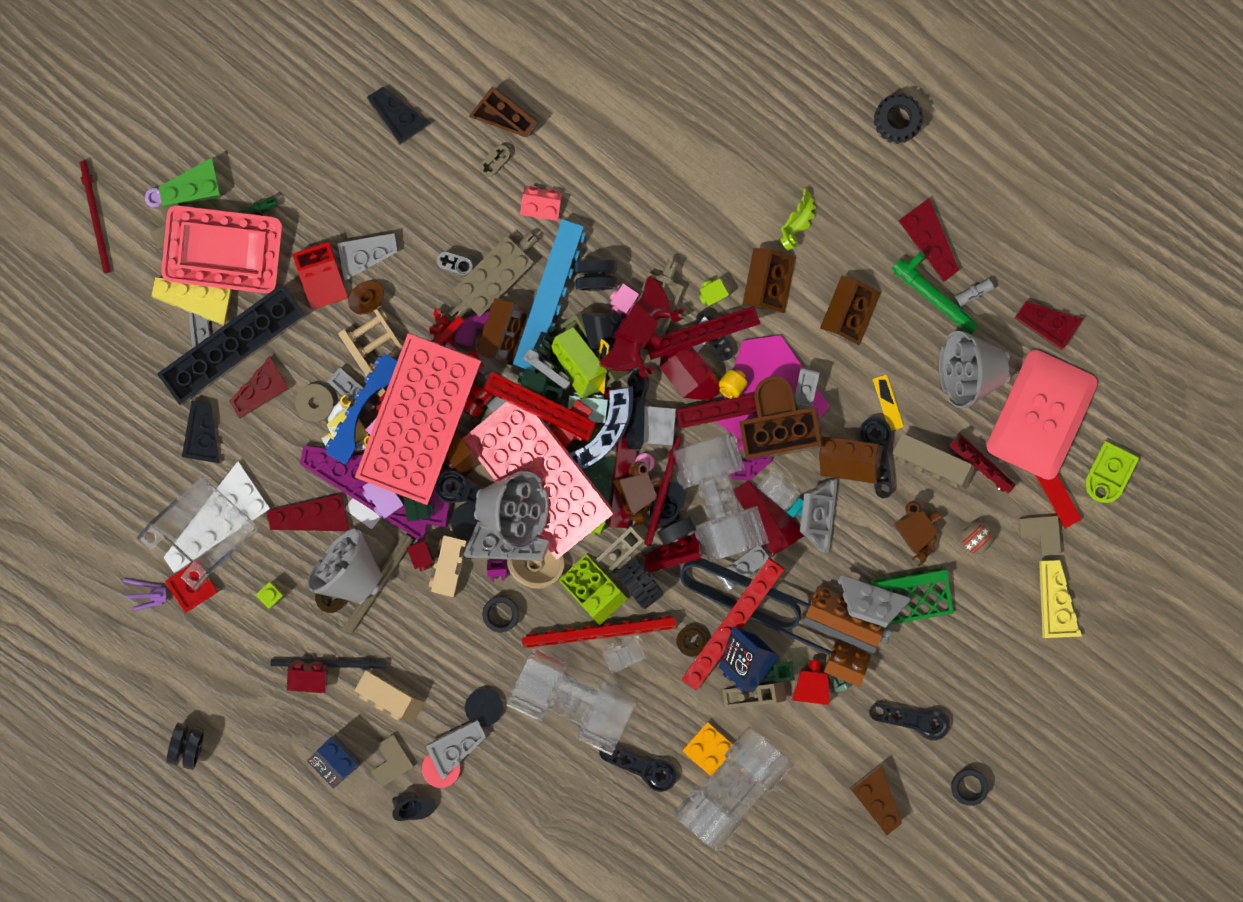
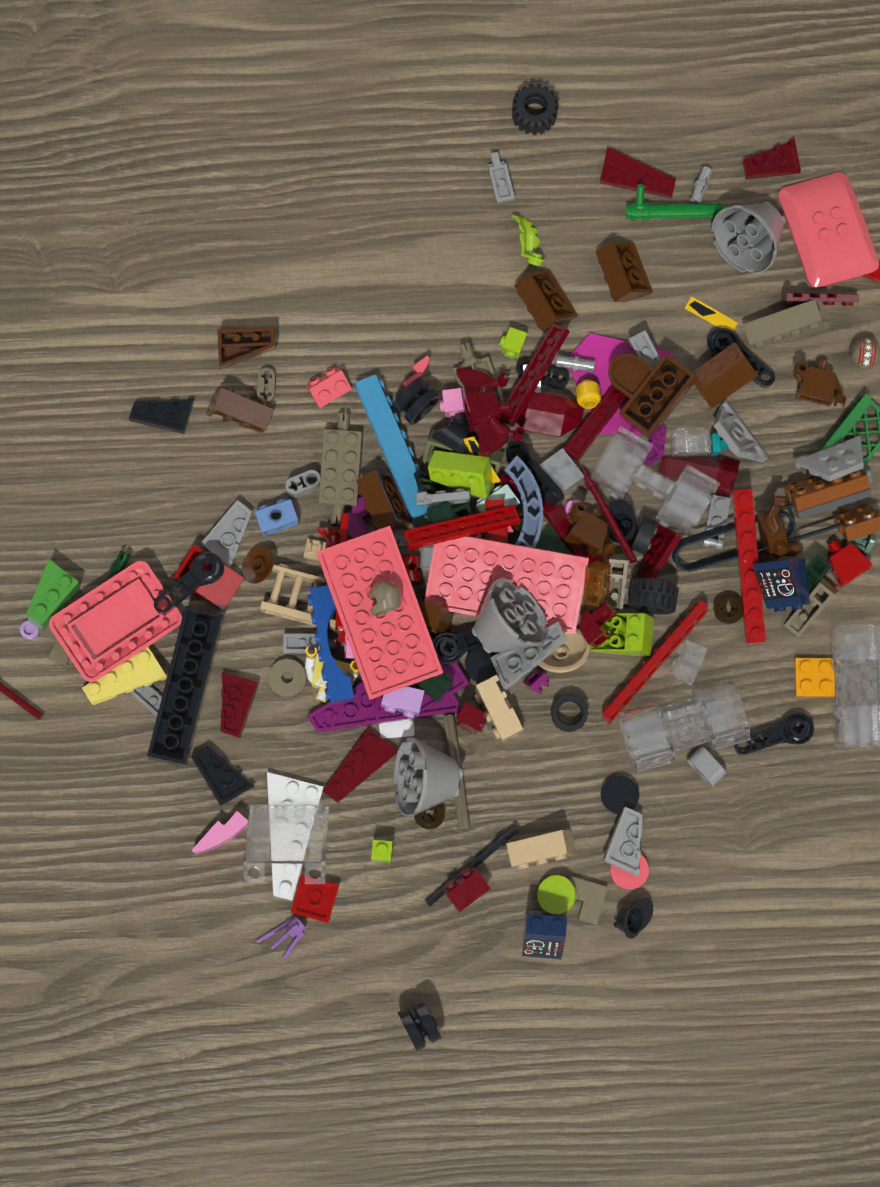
camera: 45 degrees left, 10 degrees down
(164, 478) = (221, 834): none -> bright pink slope
(304, 269) = (192, 580): none -> black beam
(370, 739) = (556, 894): none -> lime tile
(400, 272) = (270, 526): none -> medium blue brick
(420, 322) = (312, 547): none -> tan tile
(430, 412) = (387, 596): none -> dark tan helmet
(456, 164) = (240, 409): none -> reddish brown wedge
(566, 743) = (706, 766): none -> light grey beam
(573, 567) = (592, 624): none -> dark red brick
(604, 537) = (596, 583): none -> clear orange brick
(622, 251) = (419, 371): none -> coral slope
(746, 350) = (575, 363): none -> light grey pin
(771, 617) = (773, 533): none -> reddish brown torso
(820, 152) = (500, 180): none -> light grey hinge

